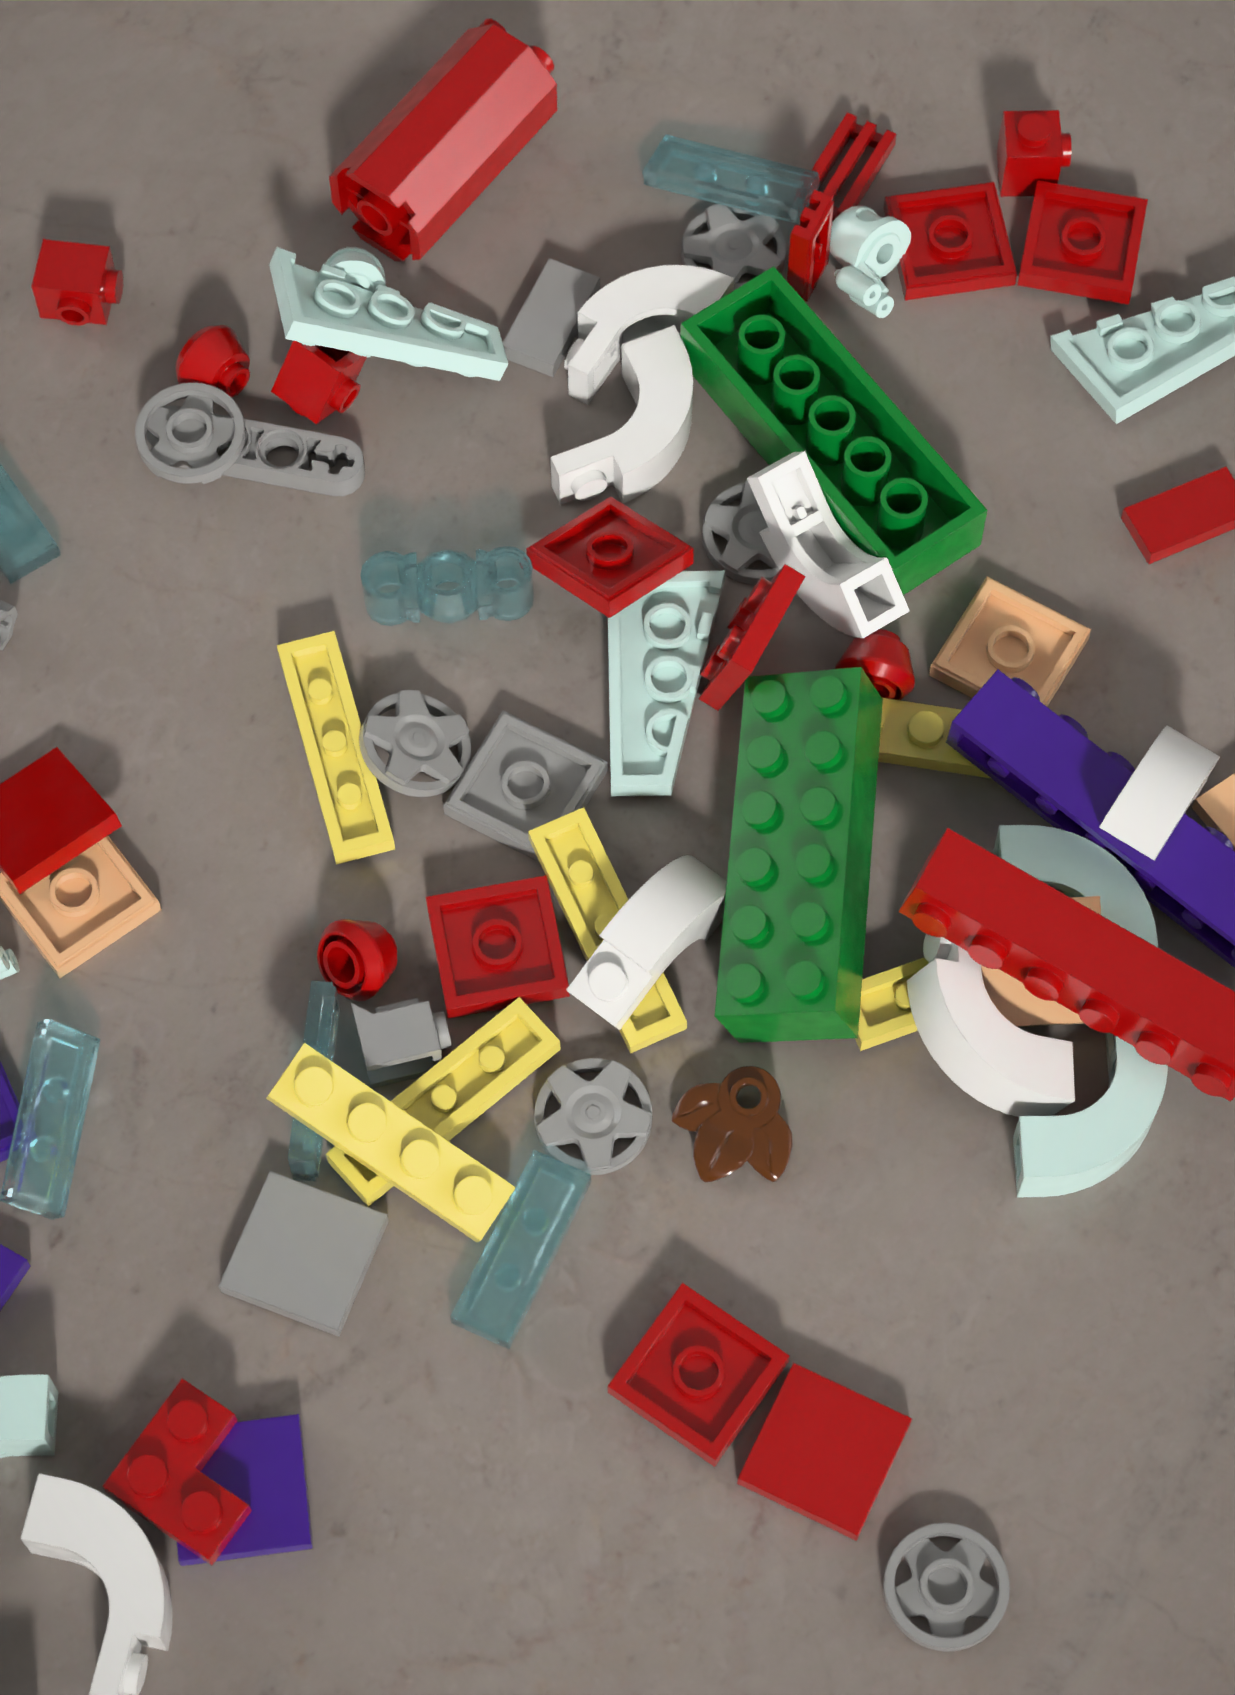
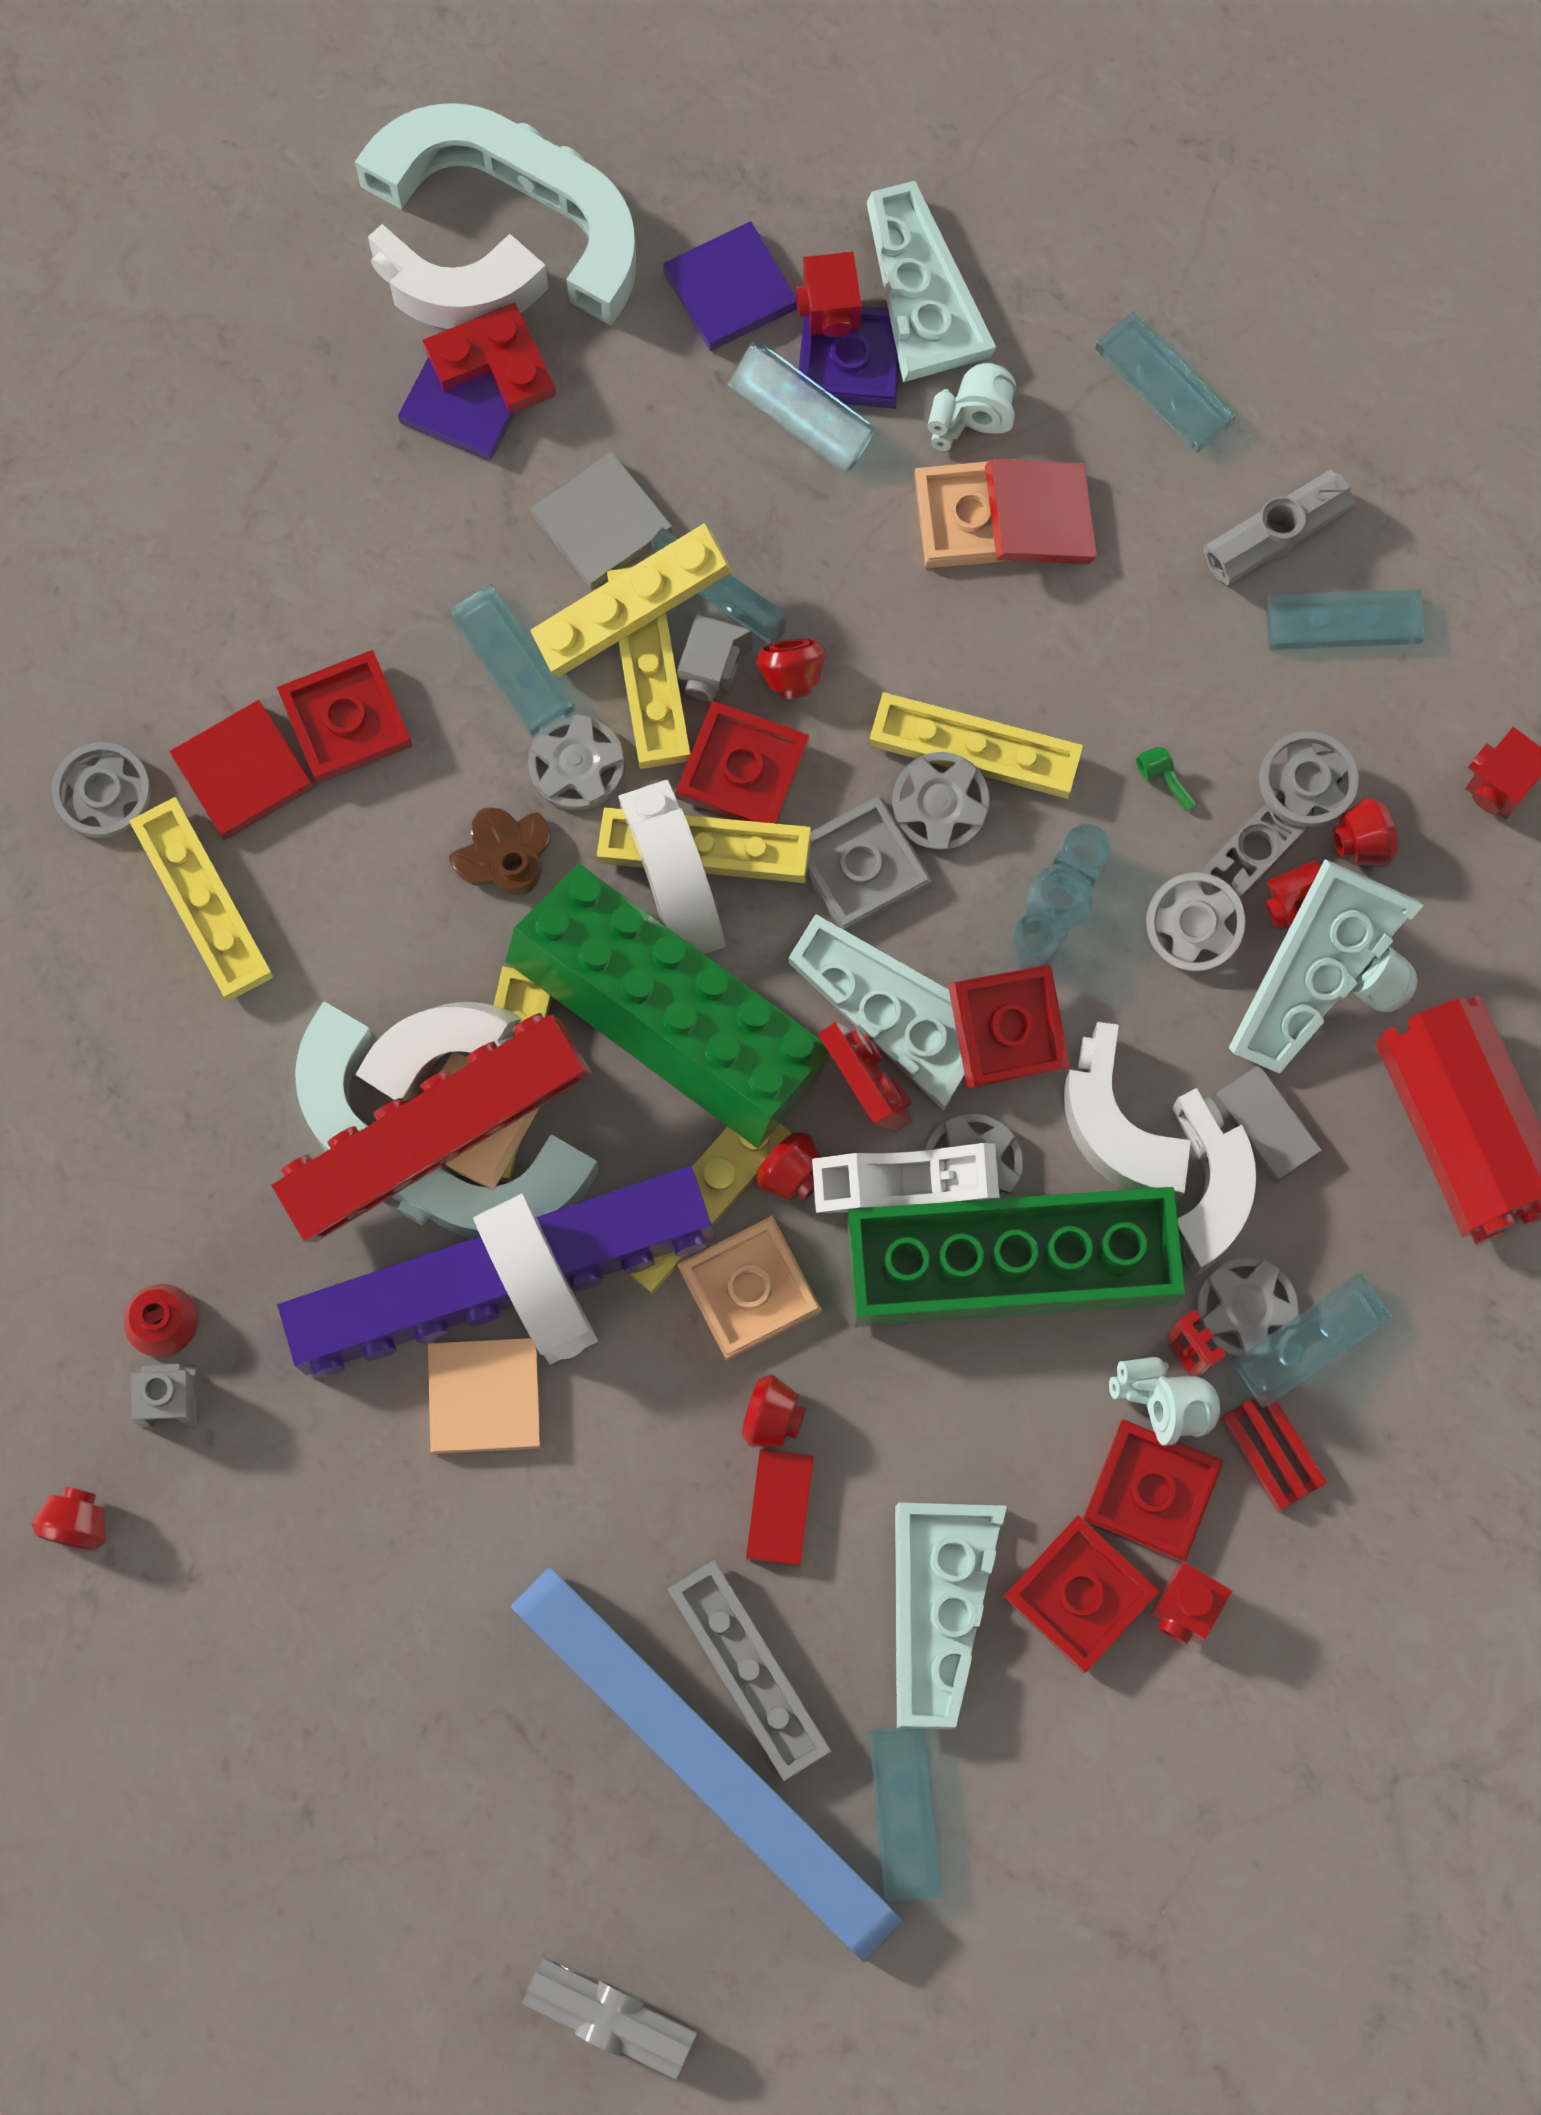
camera: 120 degrees right, 10 degrees up
(251, 583) = (1158, 763): none -> green hand
(395, 461) = (1195, 921): none -> light grey wheel
(993, 1394) = (201, 899): none -> light yellow plate
(1115, 558) = (772, 1414): none -> red cone

